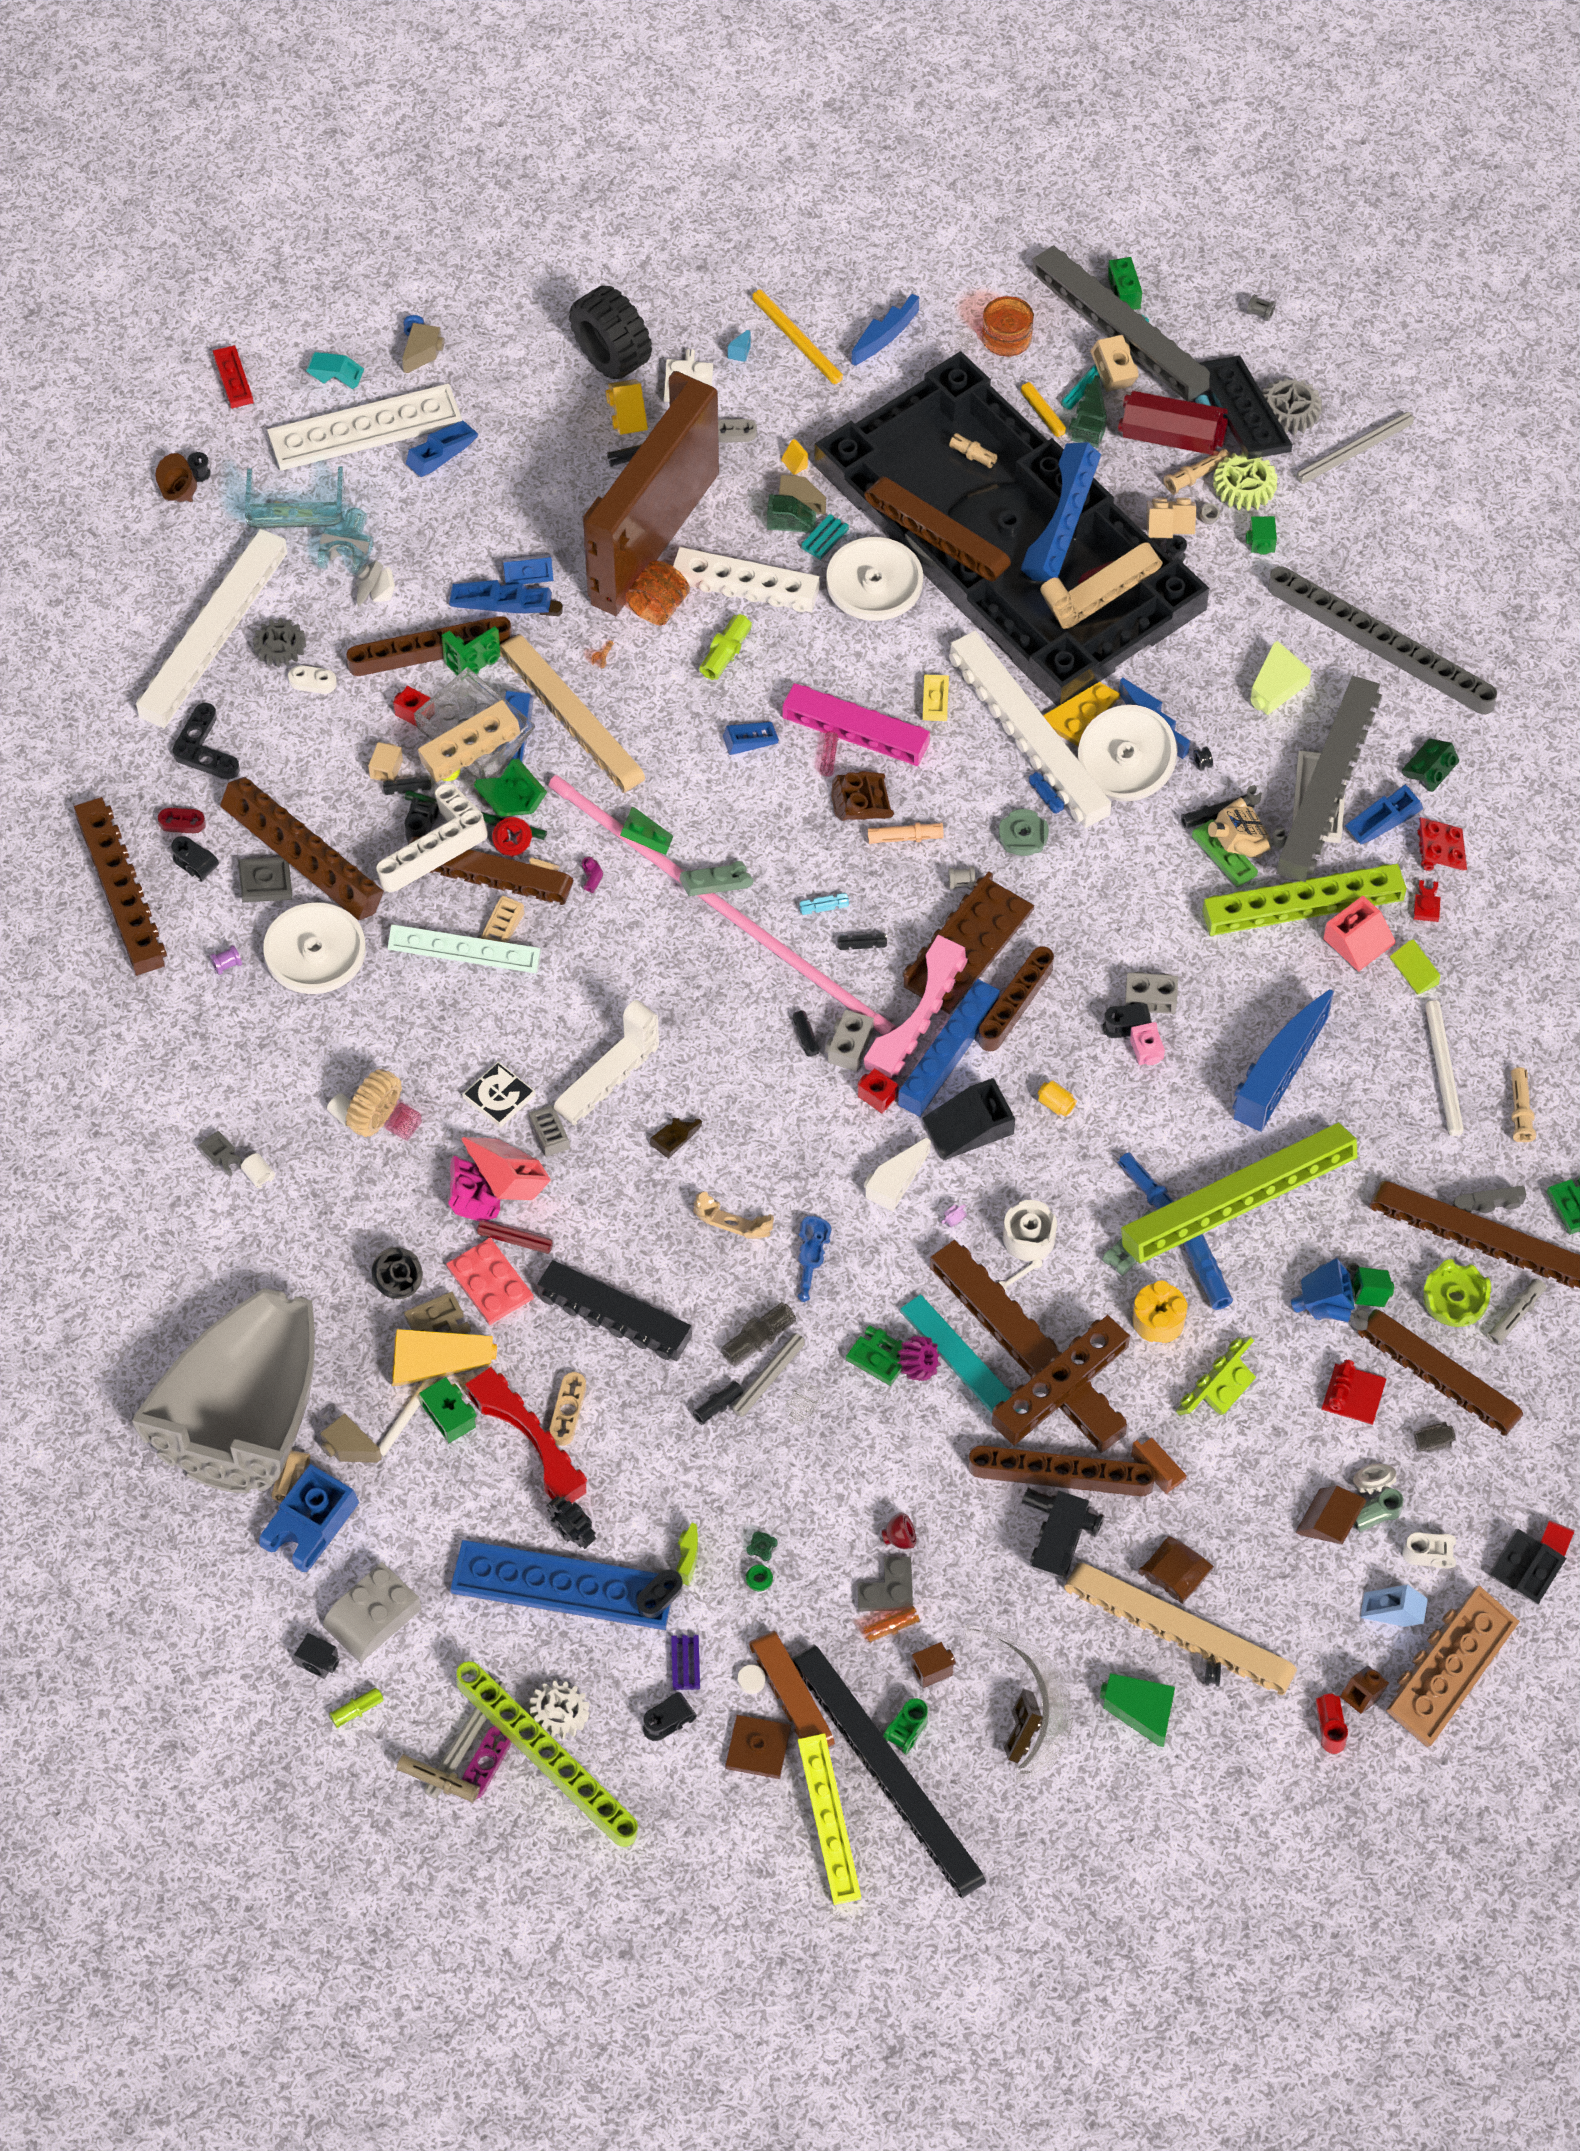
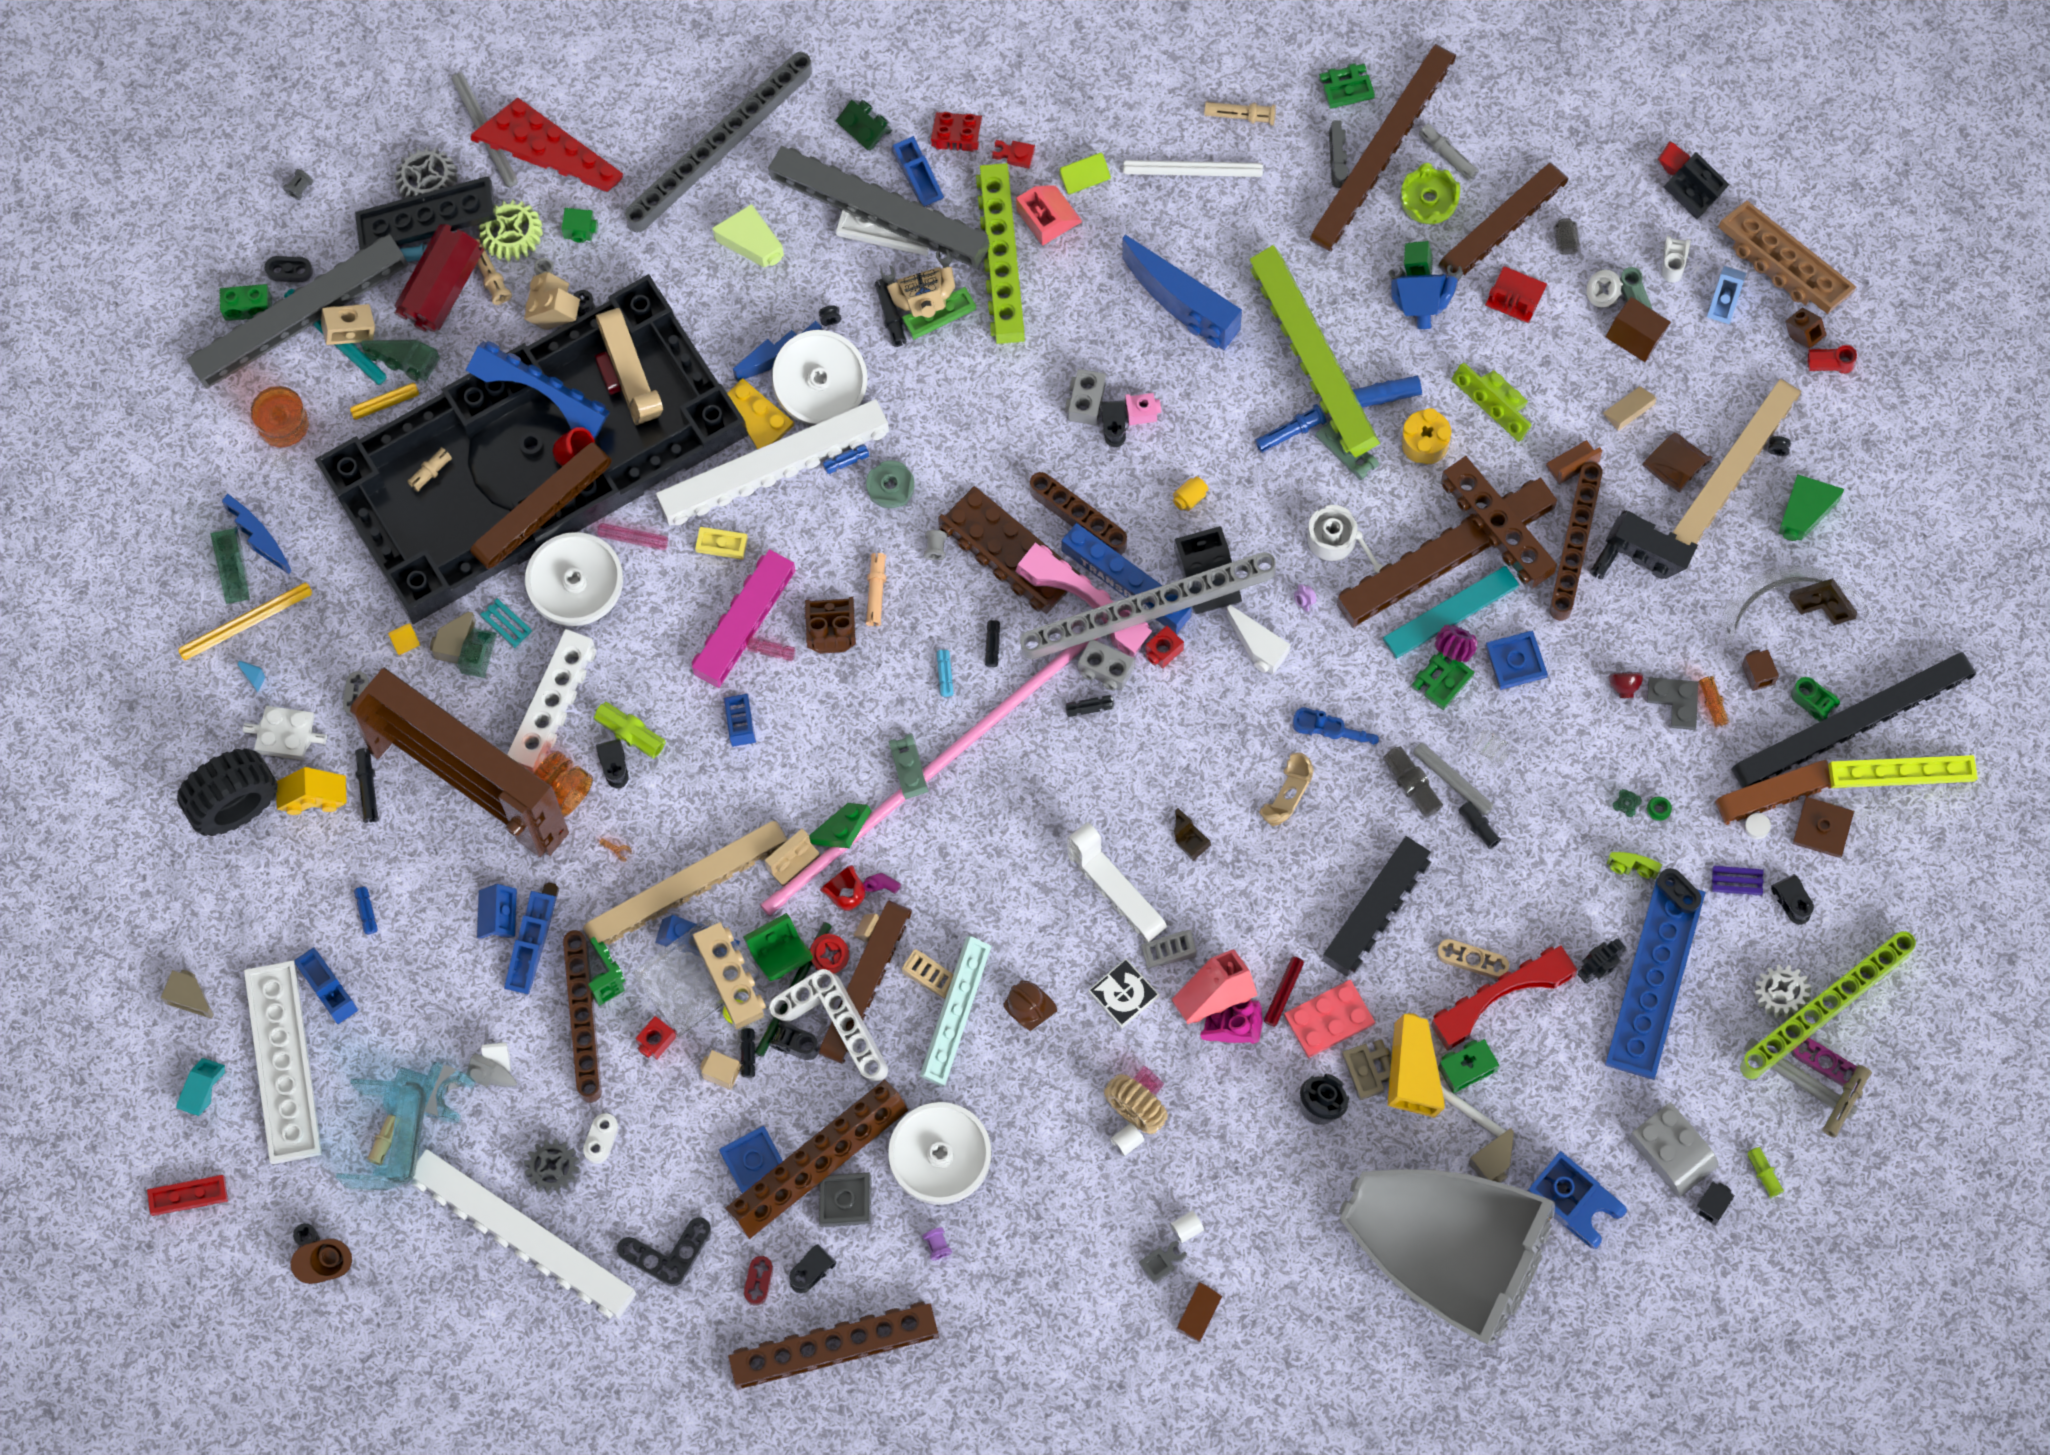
camera: 80 degrees left, 10 degrees up
(172, 1190) = (1199, 1312): none -> reddish brown slope
(302, 797) = (750, 1158): none -> blue plate
(408, 322) = (155, 1001): blue bush -> none
(480, 1013) = (1029, 1005): none -> reddish brown piece
(519, 468) = (365, 910): none -> blue axle
(578, 841) = (845, 879): none -> red hair
(608, 792) = (791, 857): none -> tan bracket
(692, 636) = (612, 760): none -> black piece
(853, 313) = (230, 564): none -> clear green slope
(910, 1065) = (1155, 596): none -> light grey beam
(912, 1424) = (1516, 660): none -> blue plate
(932, 625) = (632, 536): none -> clear pink axle
(1014, 550) = (571, 444): none -> red hair
(1169, 315) = (289, 268): none -> black plate
(1234, 1518) = (1630, 407): none -> tan slope
(1348, 491) = (542, 143): none -> red wing

